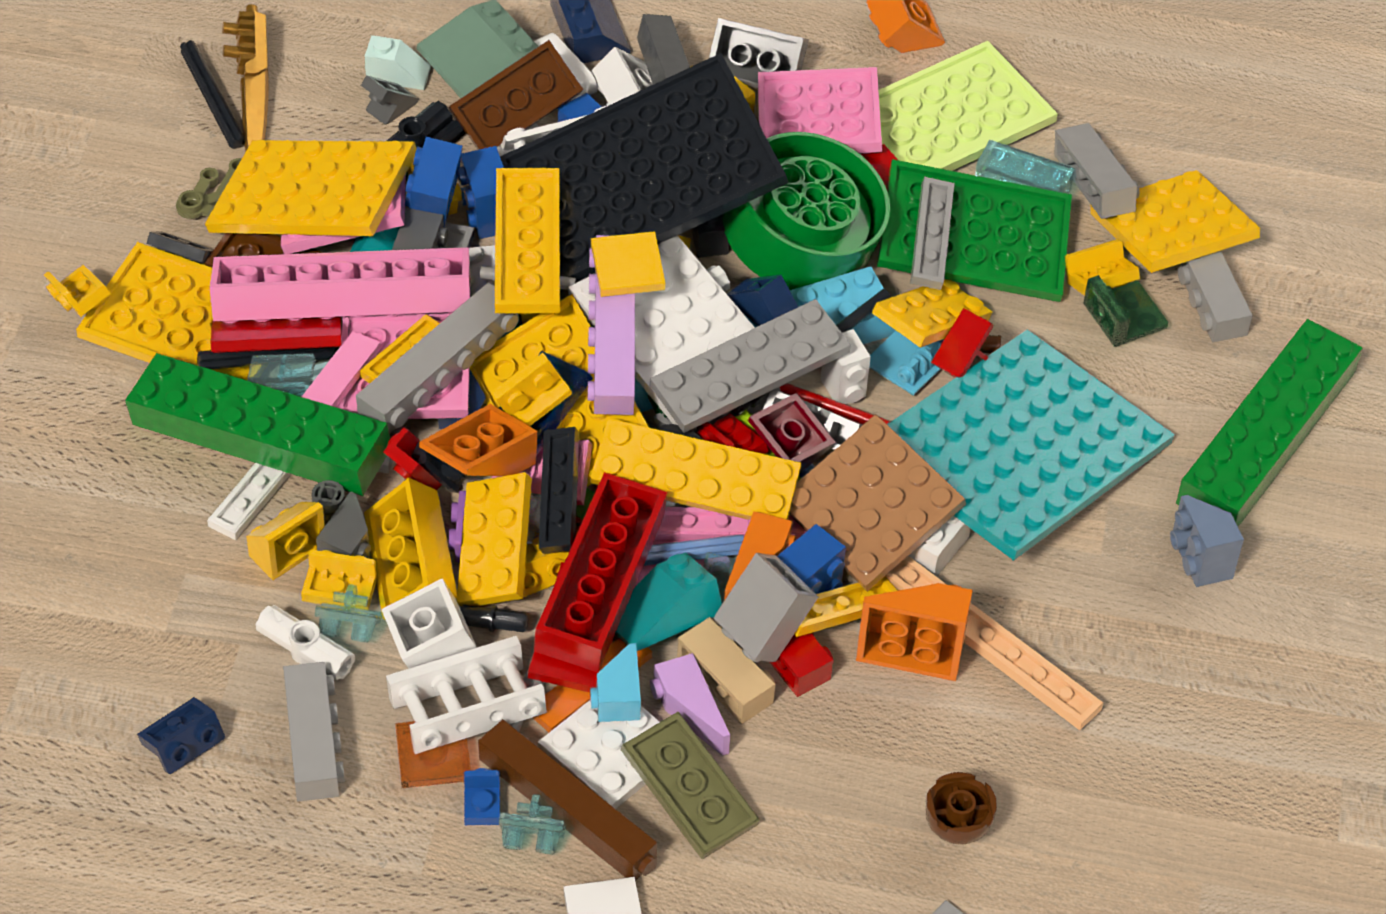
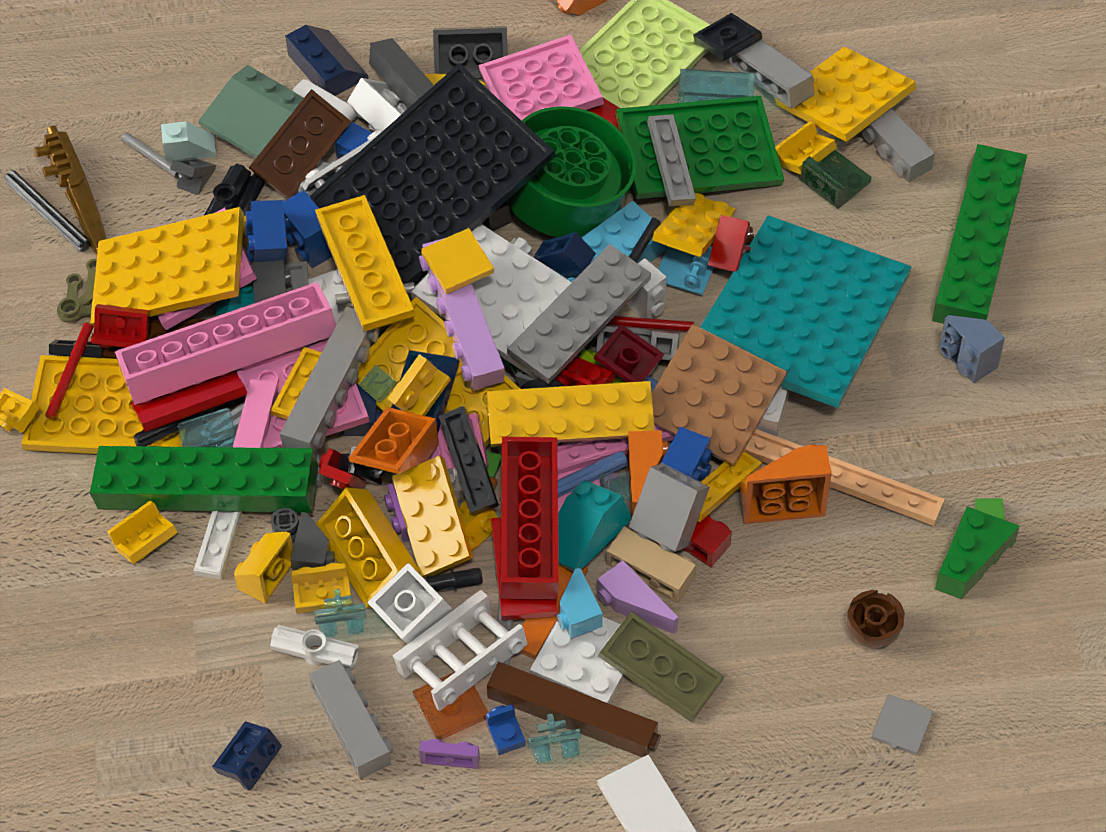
camera: 15 degrees left, 5 degrees up
(159, 266) = (69, 371): none -> red bar
(166, 461) = (141, 532): none -> yellow bracket
(233, 233) = (119, 326): none -> red bracket
(347, 62) = (148, 153): none -> light grey bar
(406, 804) = (449, 754): none -> medium lavender plate
(492, 376) = (378, 383): none -> clear light blue tile
(1059, 119) = (727, 36): none -> black tile
(1113, 769) = (974, 550): none -> green wedge
(1152, 735) = (991, 506): none -> bright green tile

